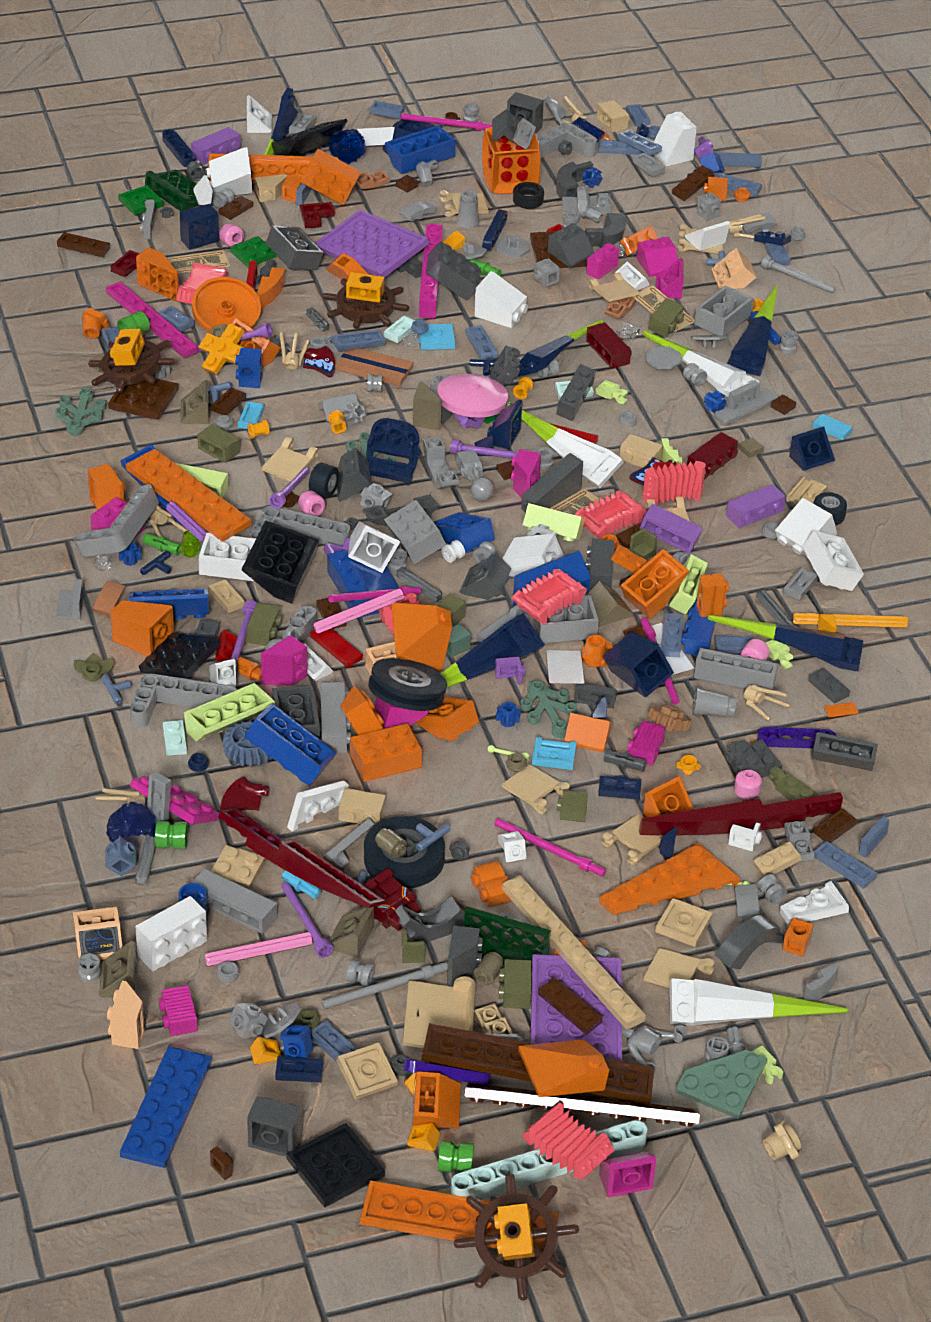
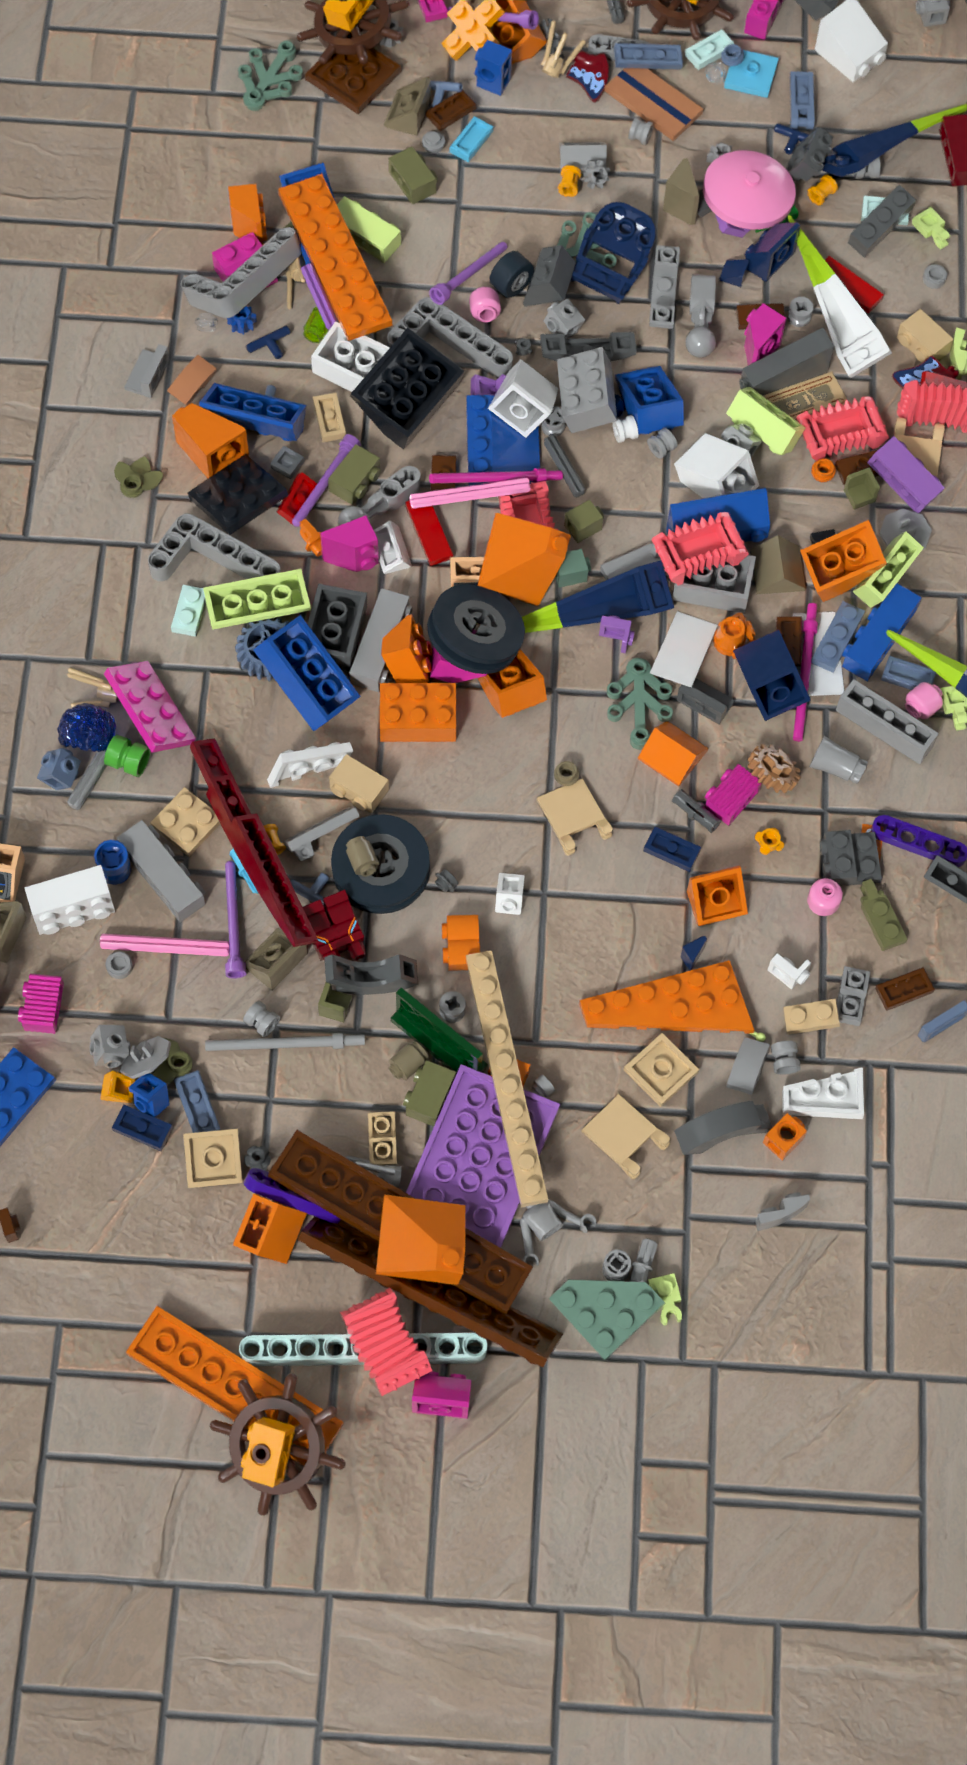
camera: 20 degrees right, 25 degrees up
(114, 688) = (148, 515): sand blue piece -> none
(159, 796) = (123, 711): light grey hinge -> none
(162, 543) = (285, 313): bright green pin -> none
(198, 762) = (200, 657): dark blue plate -> none
(223, 673) = (275, 541): white slope -> none
(244, 795) = (232, 721): dark red arm -> none
(258, 429) = (469, 165): light orange bush -> none
(274, 1126) = (78, 1202): dark grey brick -> none
(288, 463) = (486, 227): tan flag -> none
(291, 500) = (464, 290): reddish brown plate -> none
(335, 1164) = (130, 1269): black plate -> none
(424, 1137) = (243, 1264): light orange slope -> none
(430, 836) = (414, 858): sand blue piece -> none
(438, 1006) = (333, 1102): tan door -> none
(455, 1157) = (261, 1308): bright green wheel -> none
(457, 446) = (700, 264): medium lavender piece -> none
(463, 953) = (380, 1039): dark grey slope -> none
(486, 578) = (647, 483): dark grey slope -> none
(491, 749) = (581, 764): yellowish green hinge -> none
(508, 714) = (582, 693): blue gear -> none
(554, 754) = (614, 779): medium azure plate -> none
(570, 1006) = (473, 1151): reddish brown plate -> none
(573, 806) = (604, 860): olive brick -> none
(583, 863) = (583, 945): dark pink bar -> none
(599, 562) = (796, 503): dark grey brick -> none
(600, 709) = (696, 728): slope -> none
(627, 559) = (832, 511): orange plate -> none
(629, 835) = (665, 925): tan flag -> none
(710, 1002) = (640, 1197): white plate -> none
(711, 595) = (900, 607): orange brick -> none
(744, 814) = (798, 942): dark red slope -> none
(756, 694) = (898, 763): tan plant -> none
(782, 1142) = (635, 1418): tan piece -> none
(845, 864) = (892, 1046): sand blue tile -> none

